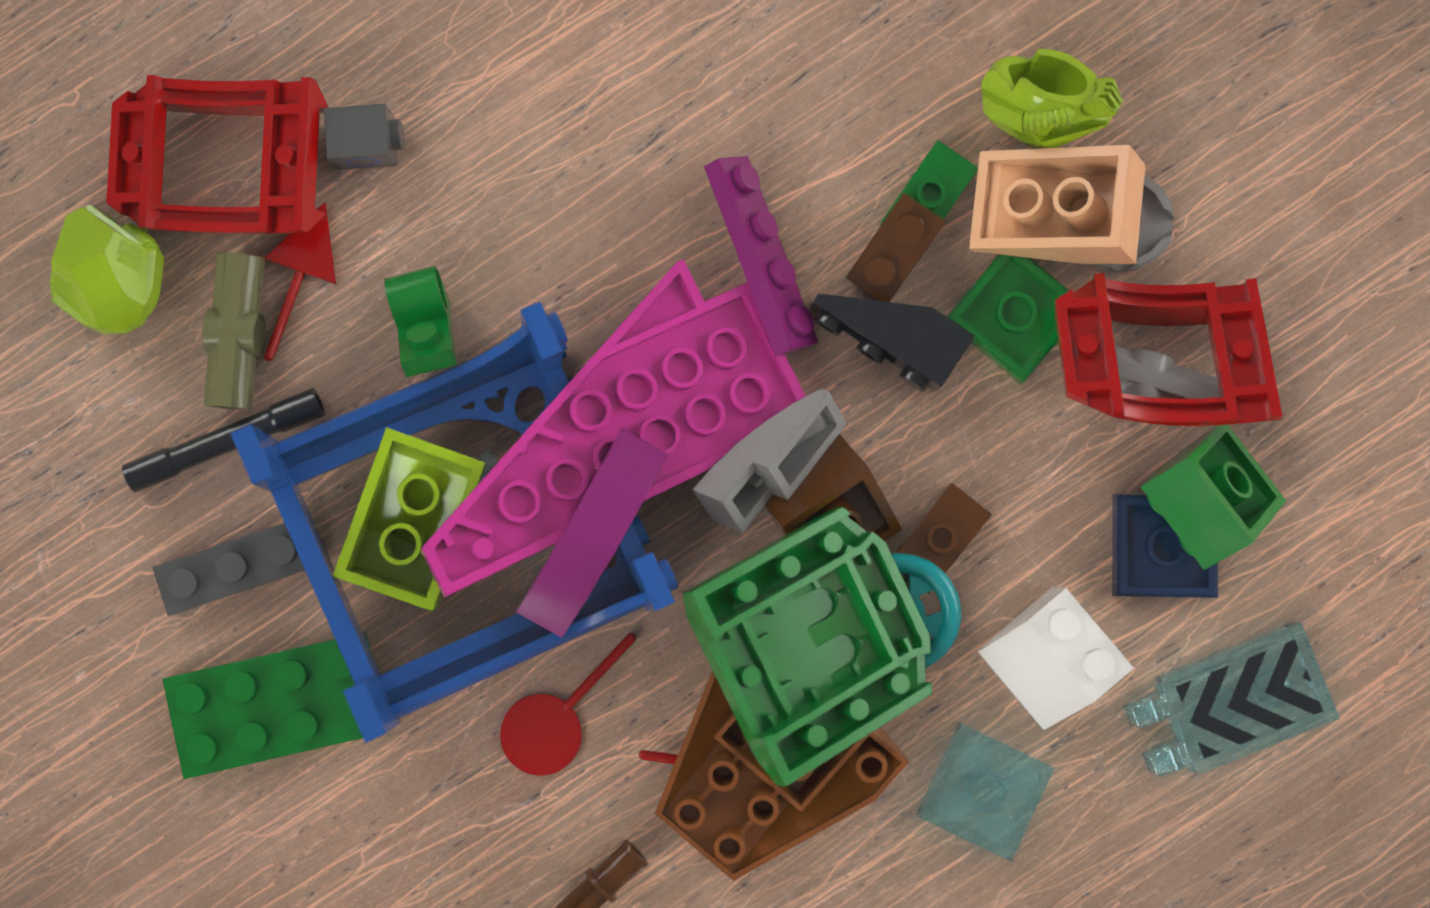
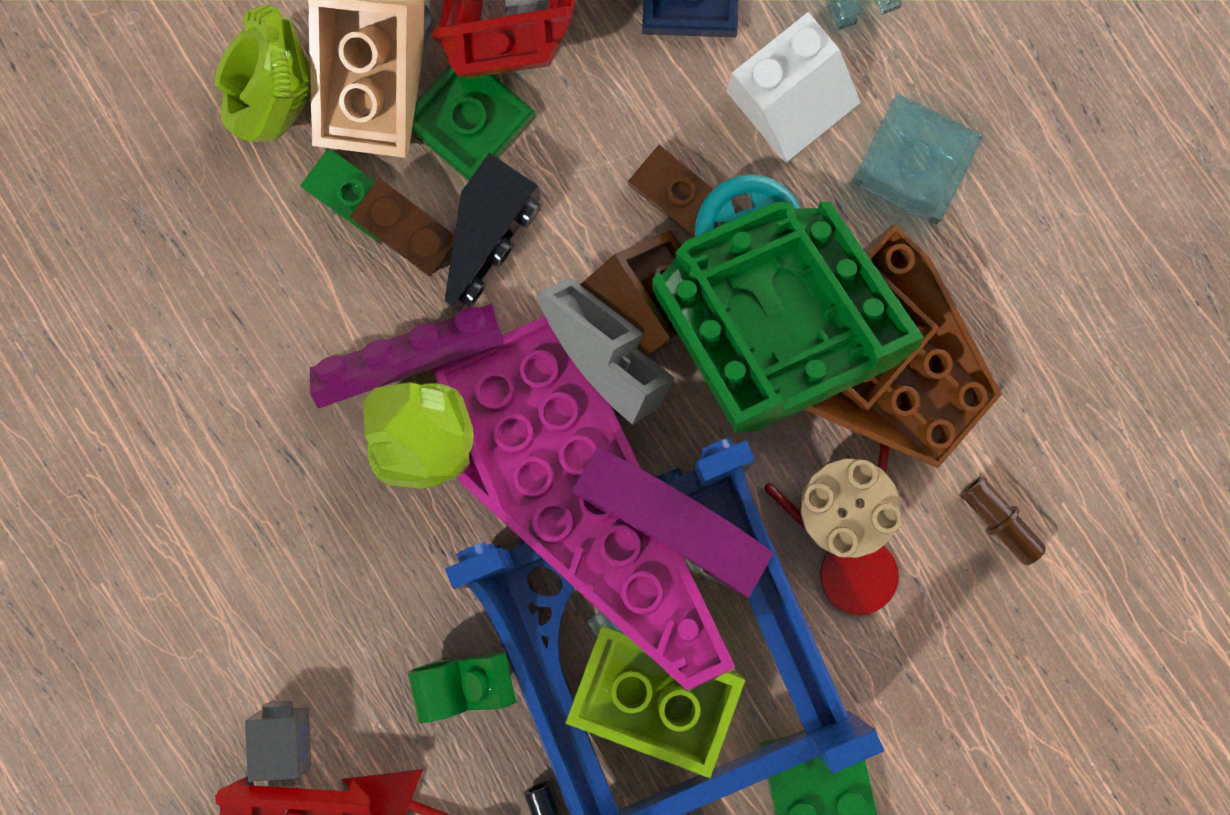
camera: 80 degrees left, 0 degrees up
(590, 733) = (860, 529): none -> tan plate
(678, 269) = (417, 434): none -> lime helmet

